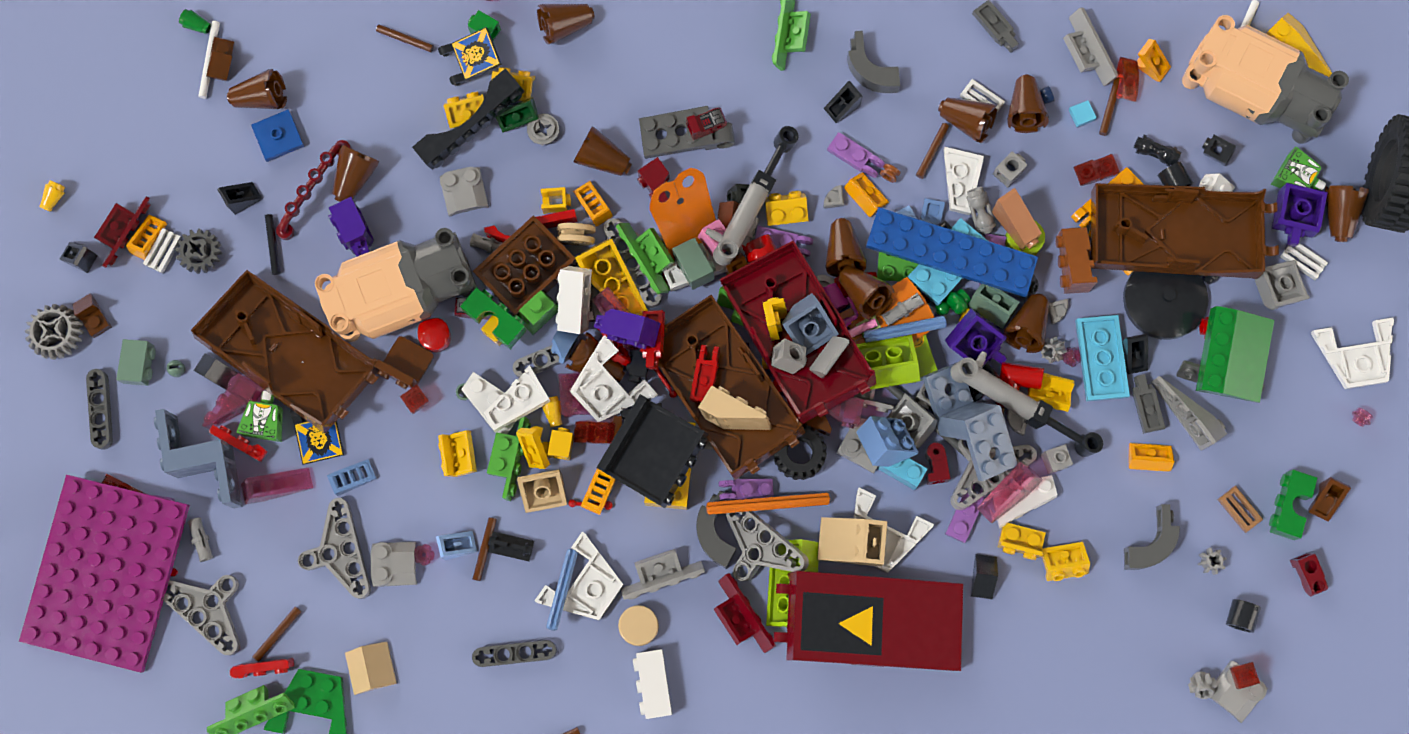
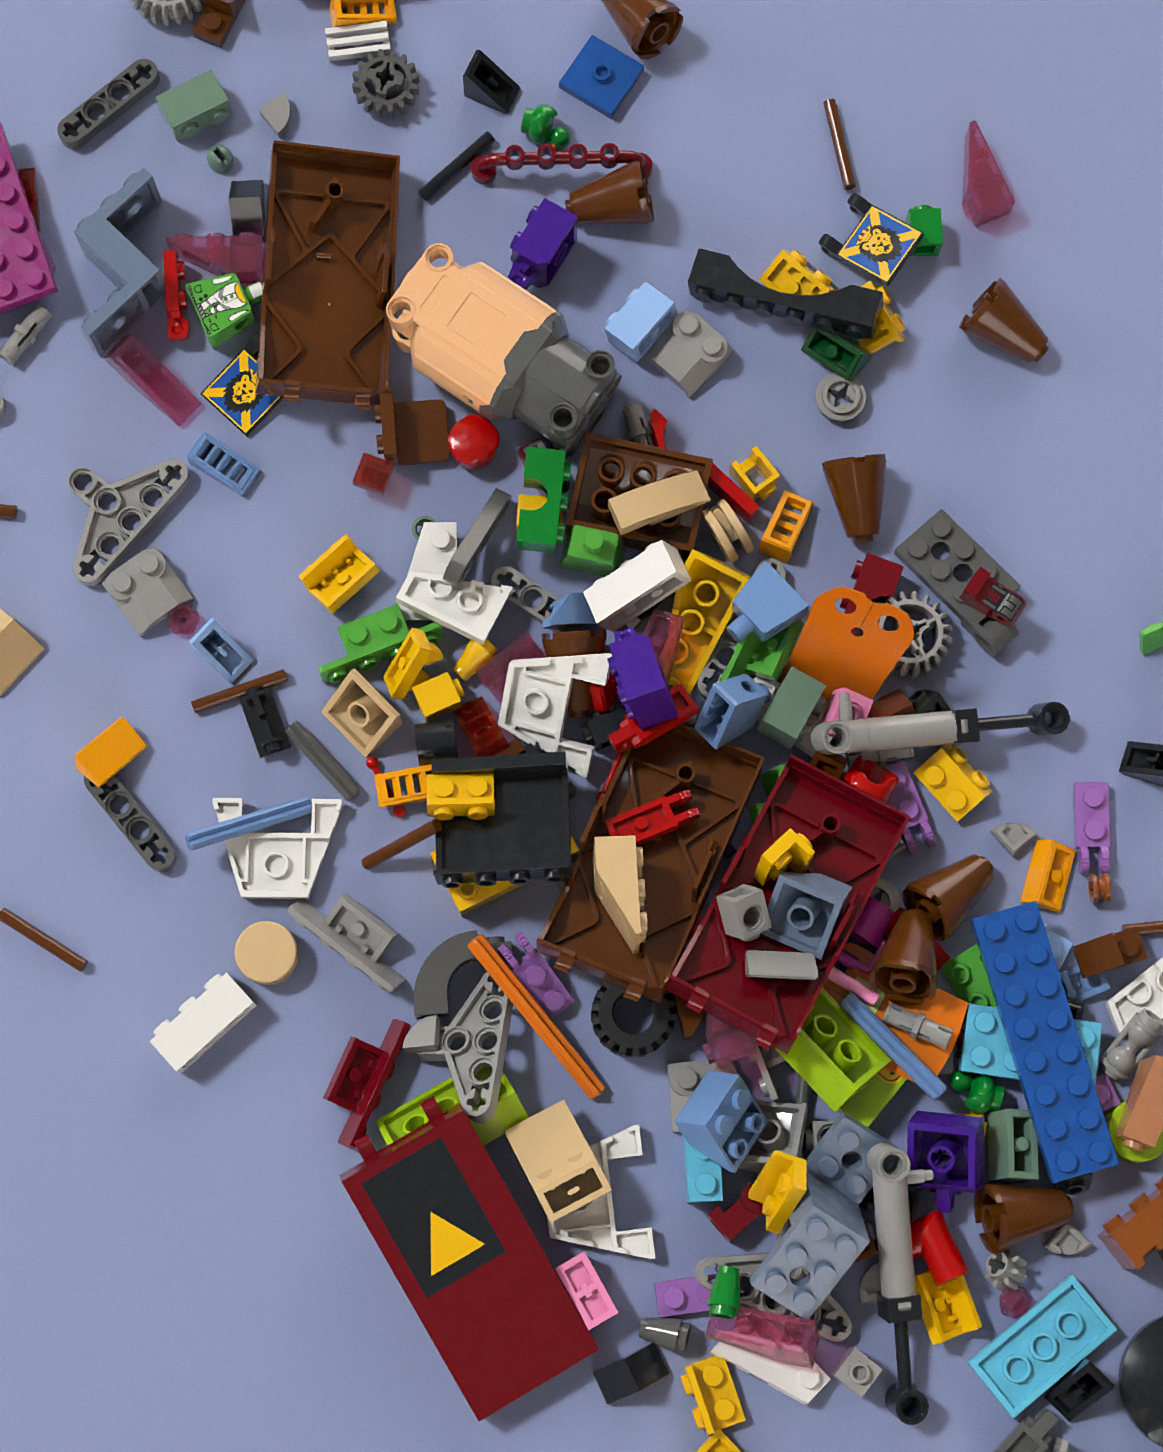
camera: 50 degrees right, 0 degrees up
(173, 320) = (277, 114): none -> light grey tile
(281, 185) = (539, 125): none -> green animal
(429, 204) = (640, 321): none -> light blue brick
(471, 641) = (109, 752): none -> light orange slope
(489, 366) = (477, 537): none -> dark grey beam
(537, 258) = (657, 501): none -> tan slope
(553, 529) = (322, 761): none -> dark grey axle
(585, 461) = (435, 741): none -> black piece
(625, 465) = (460, 795): none -> yellow bracket
(632, 239) = (766, 605): none -> medium blue torso
(632, 495) = (401, 844): none -> reddish brown bar
(671, 287) = (731, 709): none -> medium blue torso
(697, 162) = (930, 621): none -> light grey gear
(739, 569) = (423, 1035): none -> light grey tile
(926, 190) = (1109, 952): none -> reddish brown slope
(928, 570) = (586, 1290): none -> bright pink hinge
(942, 434) = (779, 1188): none -> yellow bracket
(976, 543) = (666, 1332): none -> dark grey cone
(977, 498) = (725, 1294): none -> green cone

